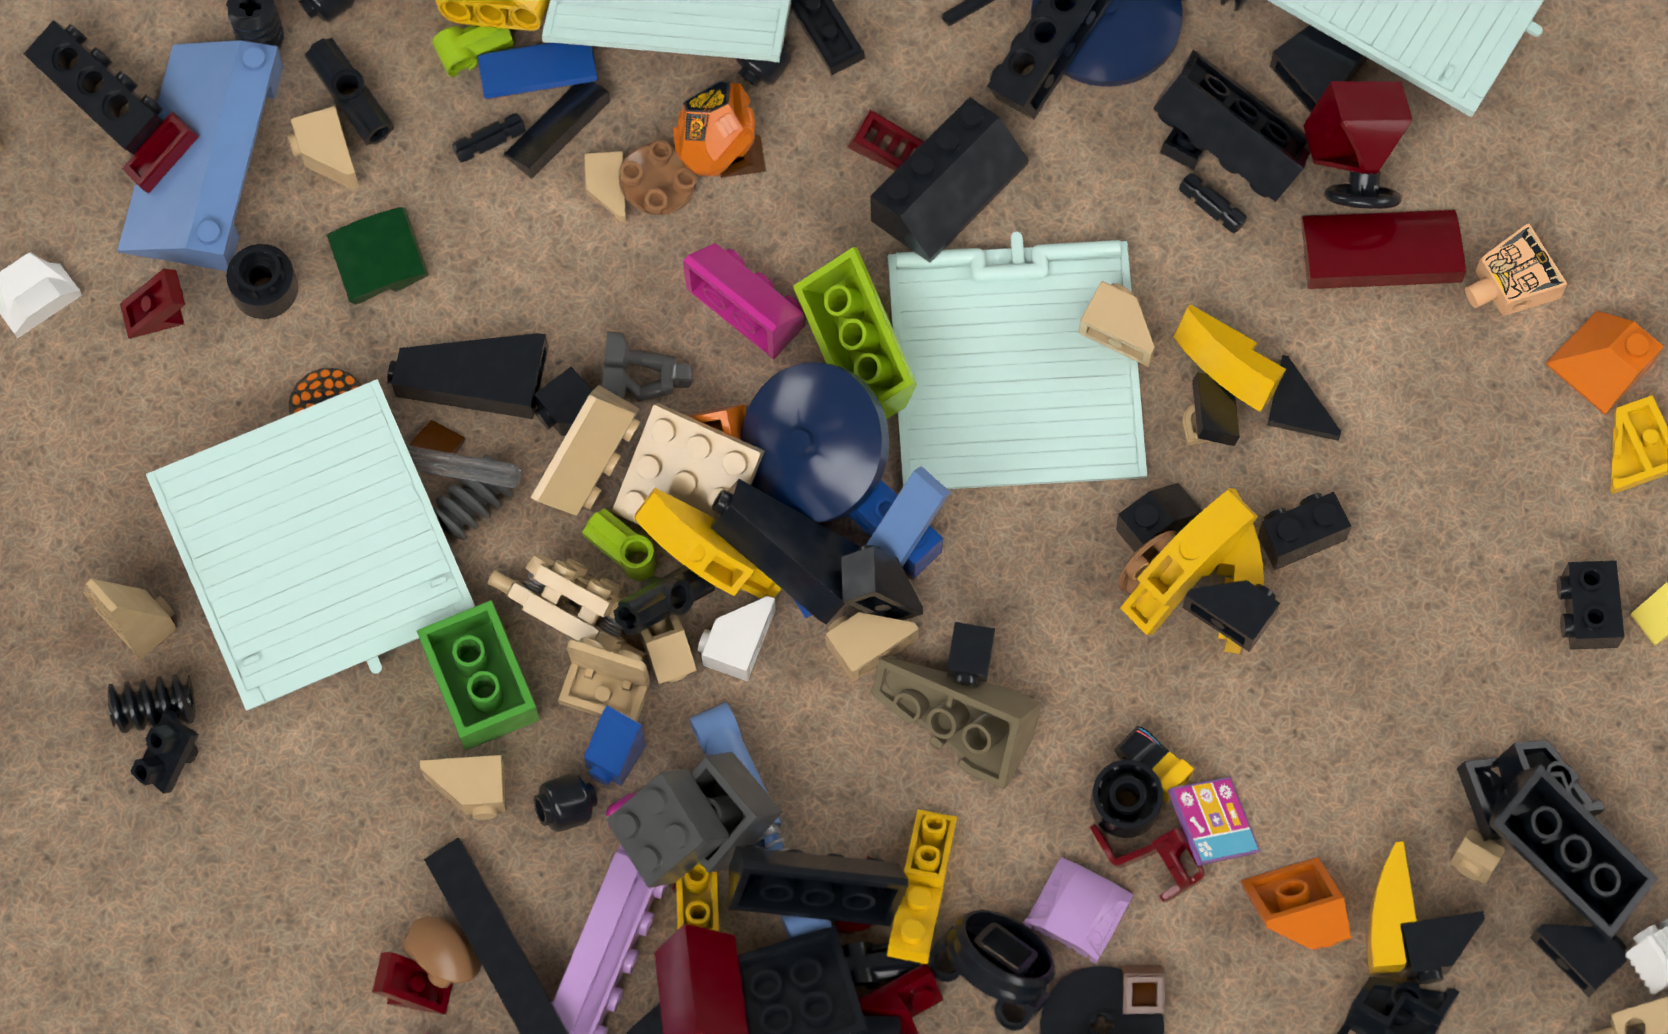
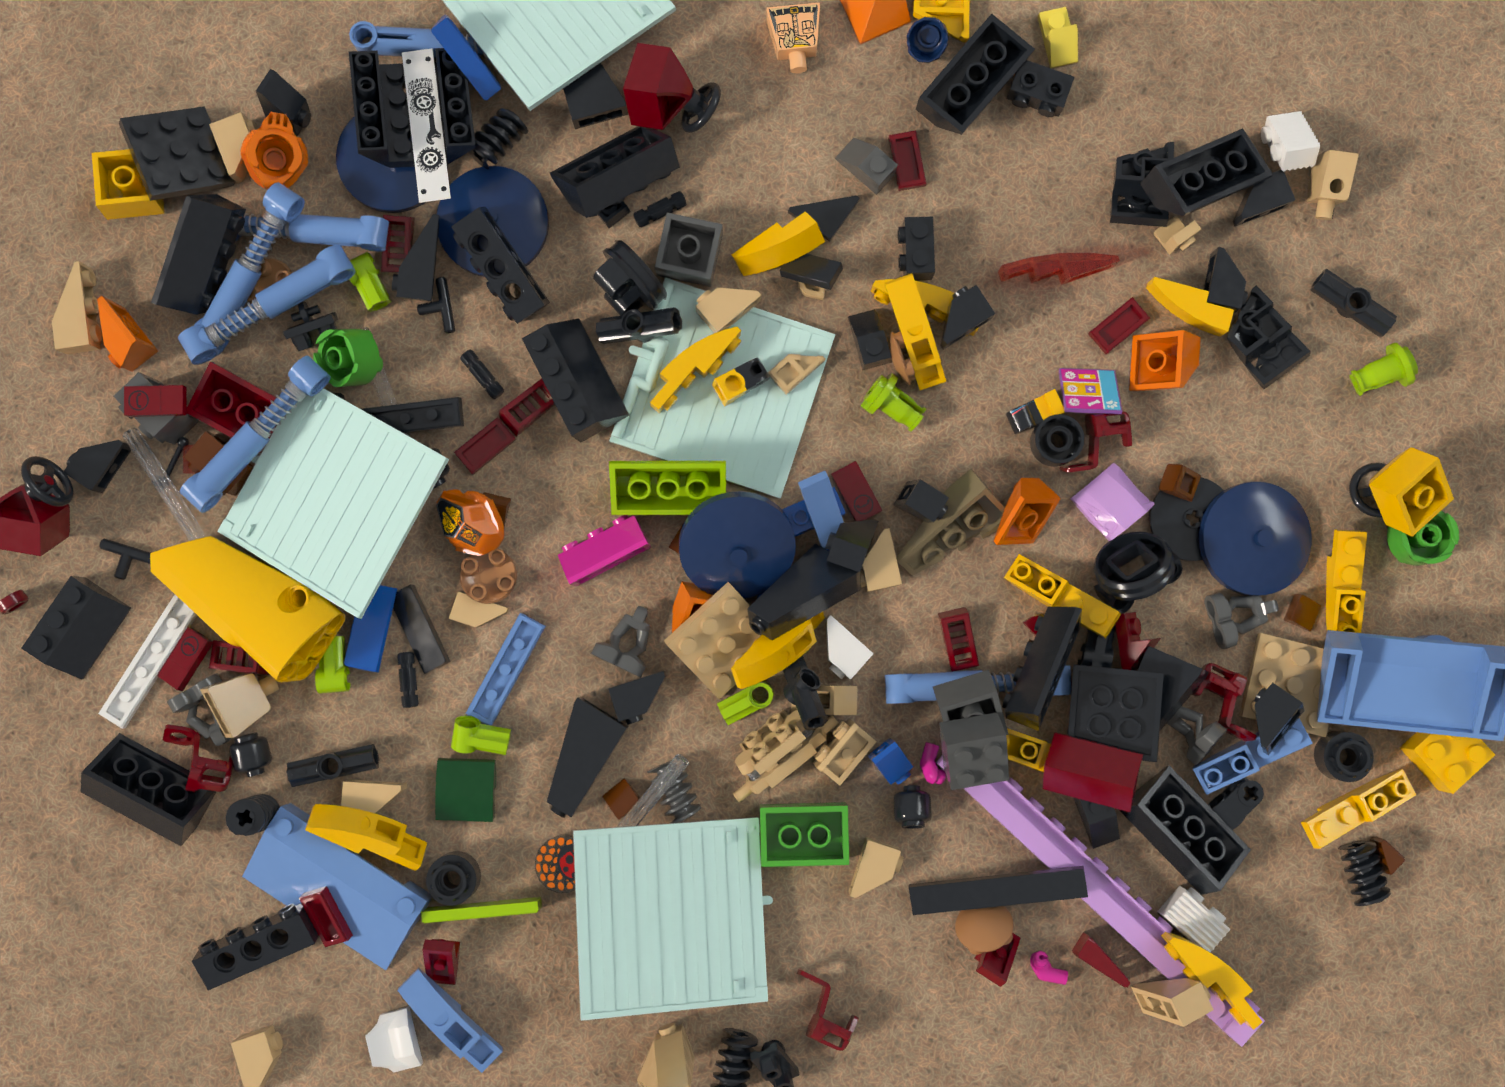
camera: 70 degrees left, 15 degrees up
(80, 343) = (448, 1021): none -> medium blue slope
(234, 329) = (481, 910): none -> lime tile
(235, 790) = (820, 1027): none -> dark red piece
(285, 168) = (367, 830): none -> yellow slope
(448, 235) = (472, 736): none -> lime piece
(547, 245) = (505, 669): none -> medium blue tile
(587, 452) = (678, 702): tan slope -> none
(819, 114) = (485, 445): none -> dark red tile
(831, 785) = (952, 616): none -> dark red slope
(907, 76) = (482, 374): none -> black axle
(952, 580) = (856, 492): none -> dark red tile
(1011, 793) = (1026, 512): none -> orange slope
(1032, 377) = (740, 381): none -> leg
(1041, 316) = (700, 357): none -> yellow slope
(1047, 227) = (650, 324): none -> black piece
(1076, 440) = (794, 370): none -> tan tile
(1087, 575) = (893, 402): none -> lime piece
(1095, 186) = (628, 280): none -> black piece
(1173, 252) = (689, 249): none -> dark grey brick
(1322, 832) = (1119, 325): none -> dark red tile
(1369, 730) = (1065, 265): none -> clear red slope
(1383, 249) = (736, 124): dark red slope -> none
(1386, 430) = (867, 164): none -> dark grey slope
(1418, 478) = (907, 155): none -> dark red tile
(1564, 508) = (974, 76): none -> black slope
(1586, 437) = (927, 39): none -> dark blue hair

